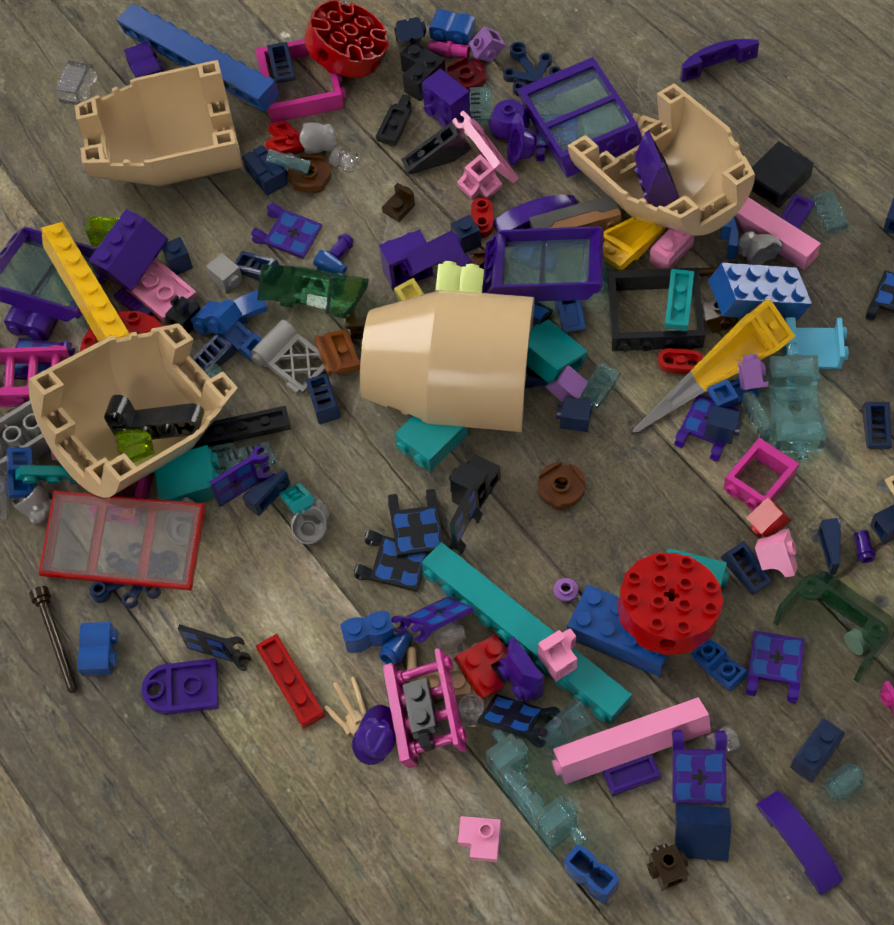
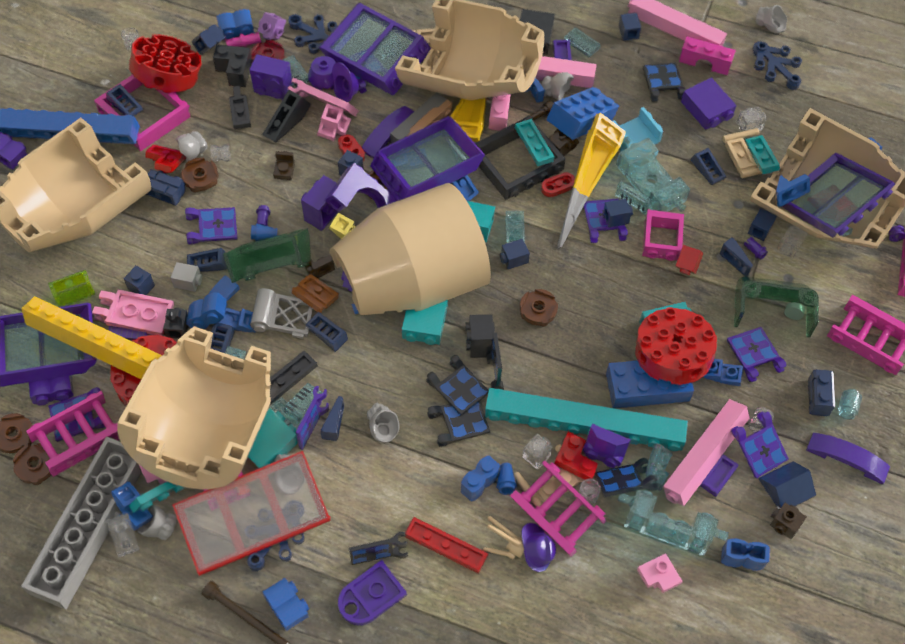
camera: 40 degrees left, 0 degrees up
(128, 250) = (104, 293): dark purple slope -> none
(134, 443) = (214, 436): clear neon green brick -> none
(158, 421) = (220, 411): black beam -> none
(288, 161) = (182, 171): clear light blue pin -> none
(297, 498) = (365, 410): teal plate -> none
(421, 712) = (561, 511): hinge -> none
(432, 617) = (522, 440): dark purple flag -> none
(459, 278) = (379, 196): yellowish green brick -> none
(557, 654) = (626, 420): bright pink brick -> none
(562, 595) = (591, 381): medium lavender plate -> none
(568, 384) = (499, 236): medium lavender panel -> none
(654, 173) = (459, 62): dark purple slope -> none
(728, 393) = (605, 189): blue slope -> none
(734, 566) = (690, 291): dark blue slope -> none
(751, 372) = (613, 169): medium lavender brick -> none
(777, 553) = (710, 278): bright pink brick -> none

